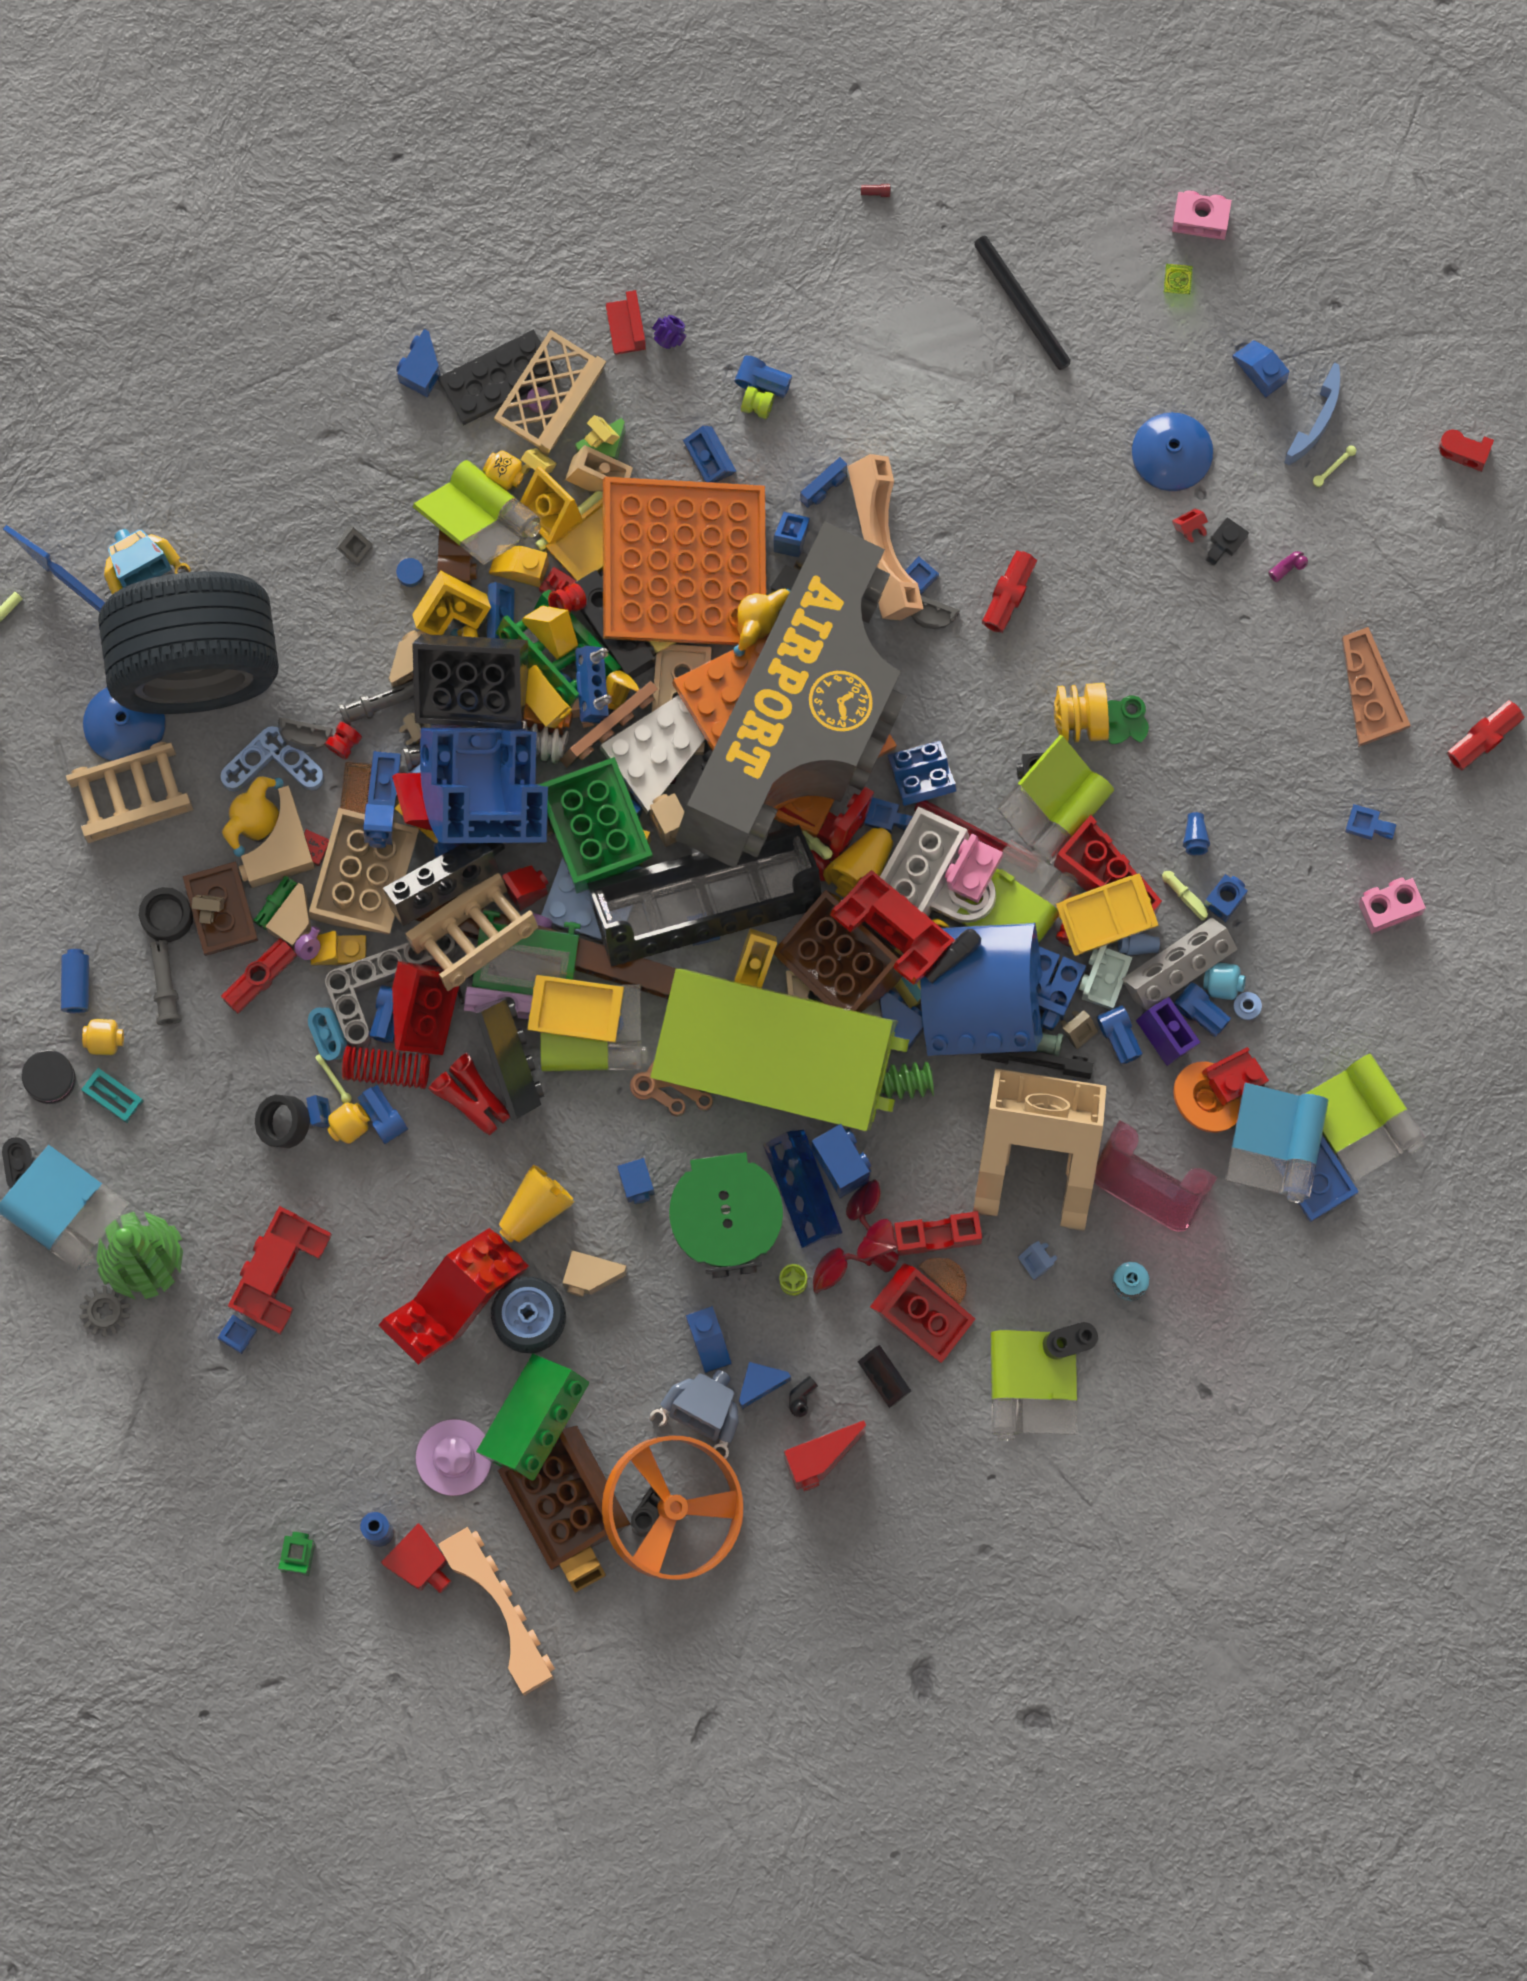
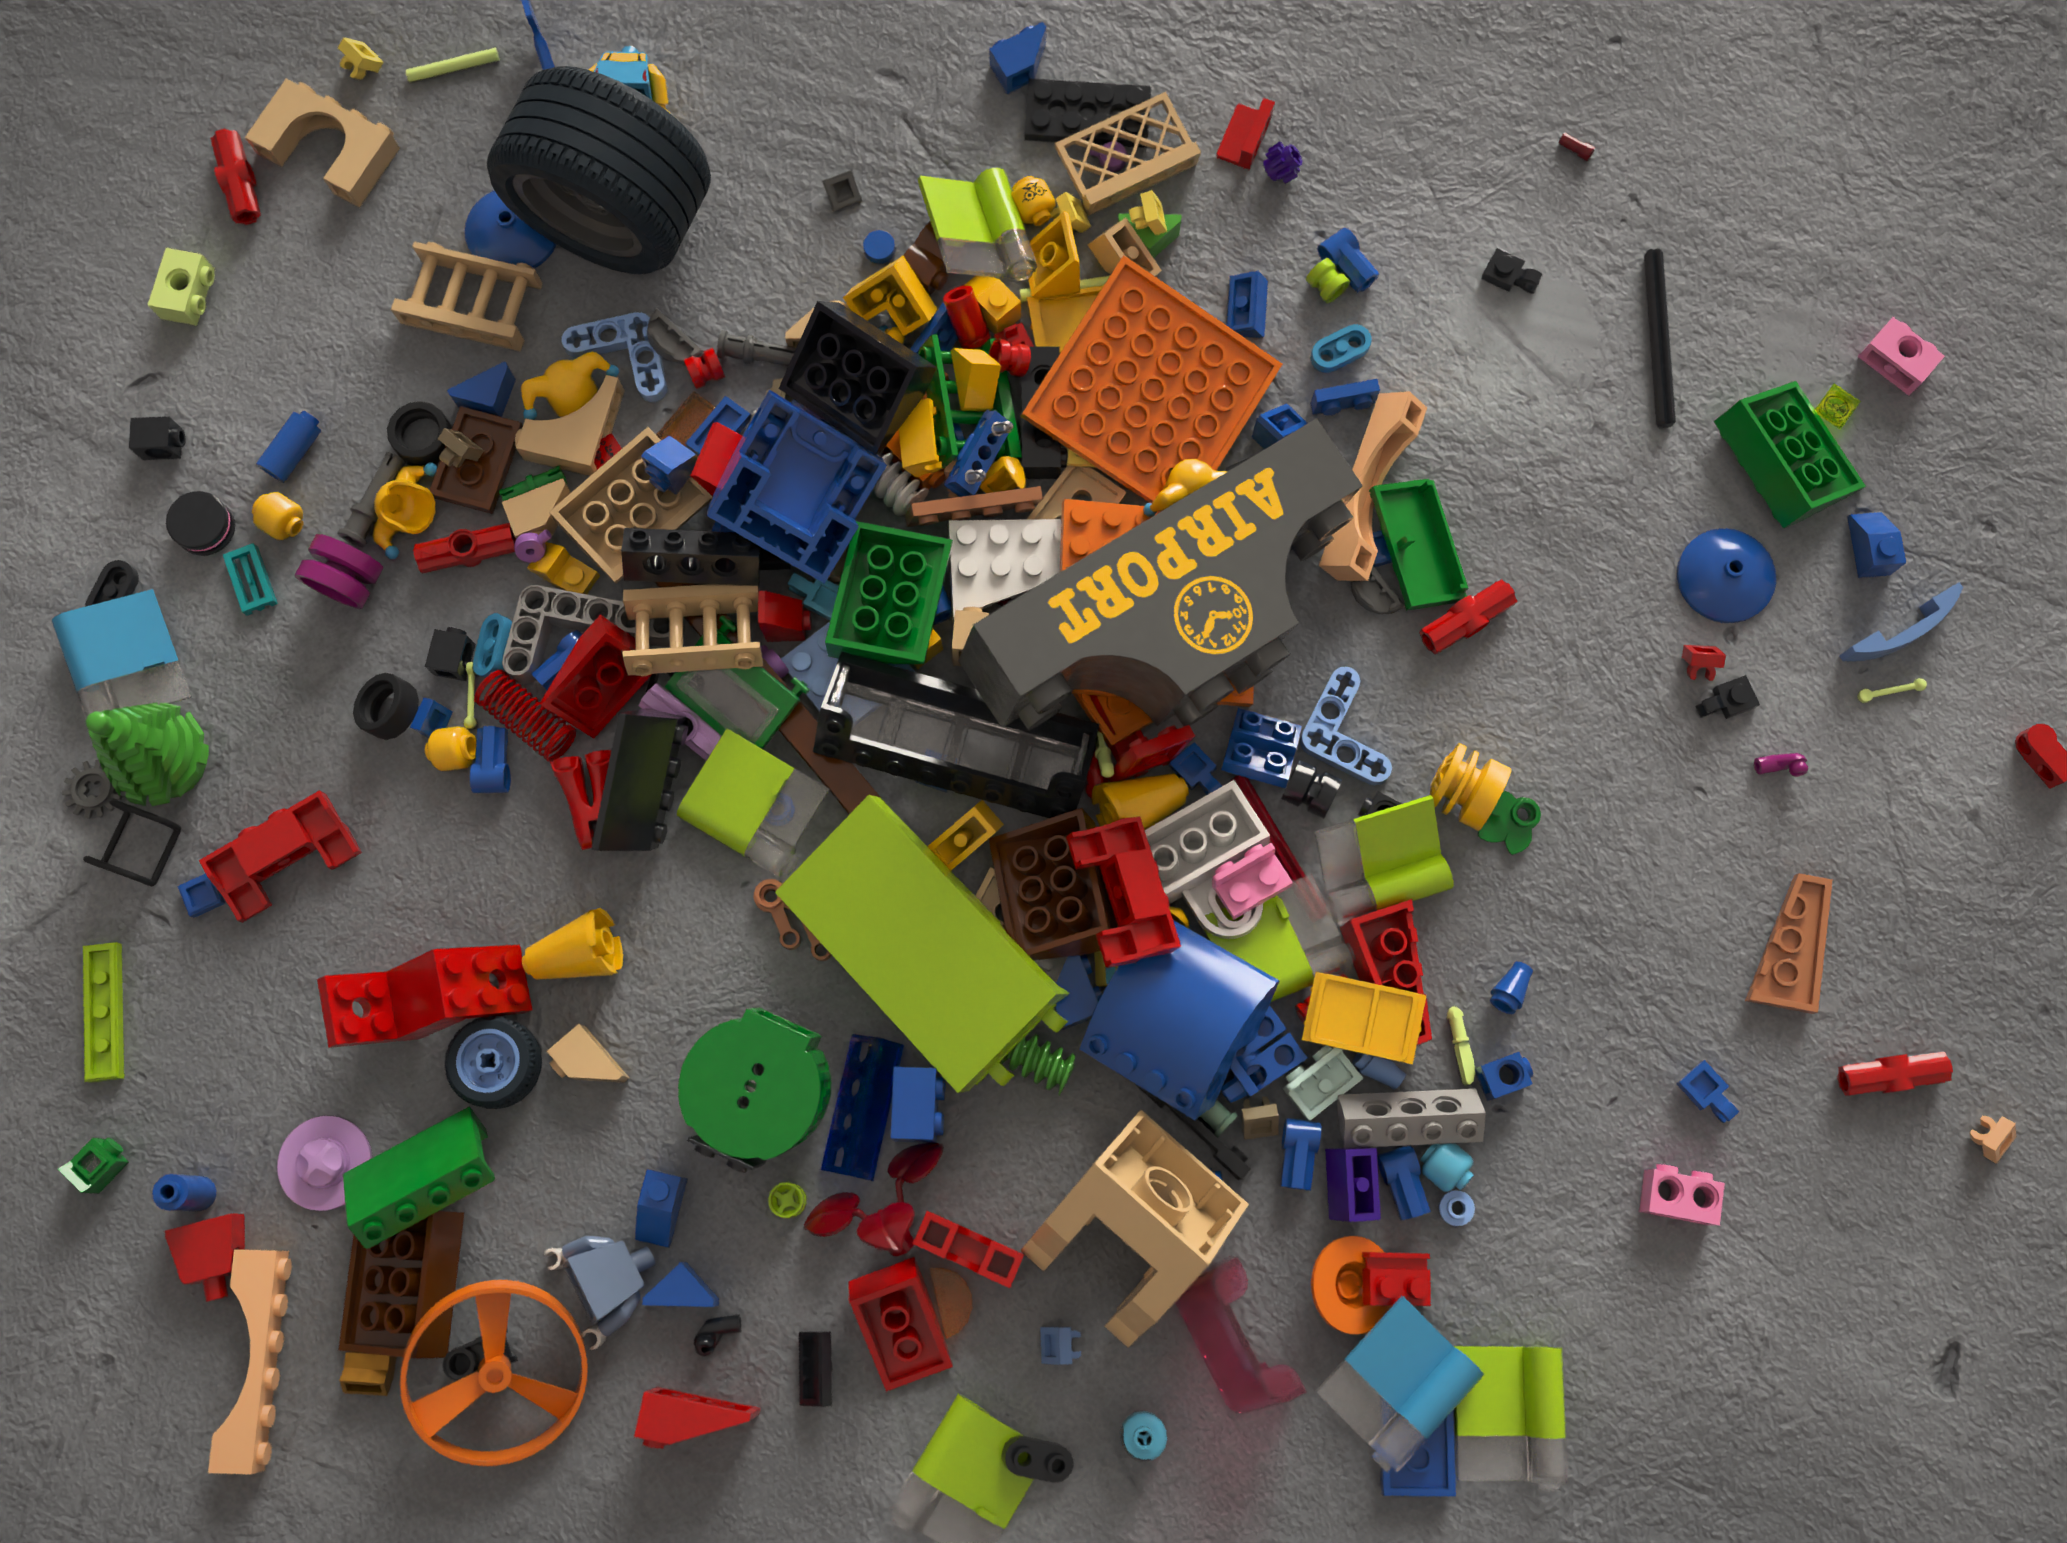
camera: 30 degrees right, 0 degrees up
(149, 1353) = (128, 809): none -> black piece
(183, 1047) = (339, 571): none -> magenta wheel
(192, 974) = (403, 506): none -> yellow piece
(193, 855) = (485, 391): none -> blue slope
(225, 1455) = (103, 1012): none -> lime tile
(300, 1057) = (450, 653): none -> black brick
(514, 588) = (966, 317): none -> red piece
(541, 855) = (819, 596): none -> medium azure plate
(575, 1008) = (745, 773): yellow piece -> none
(636, 1181) = (695, 991): blue brick -> none
(797, 449) = (1338, 348): none -> dark azure plate
(881, 316) = (1506, 270): none -> black plate
(943, 559) = (1419, 543): none -> green container
(961, 732) = (1328, 731): none -> light blue beam
(961, 948) = (1177, 960): black piece -> none
(965, 781) = (1300, 784): none -> black wheel
(1164, 335) = (1788, 453): none -> green slope

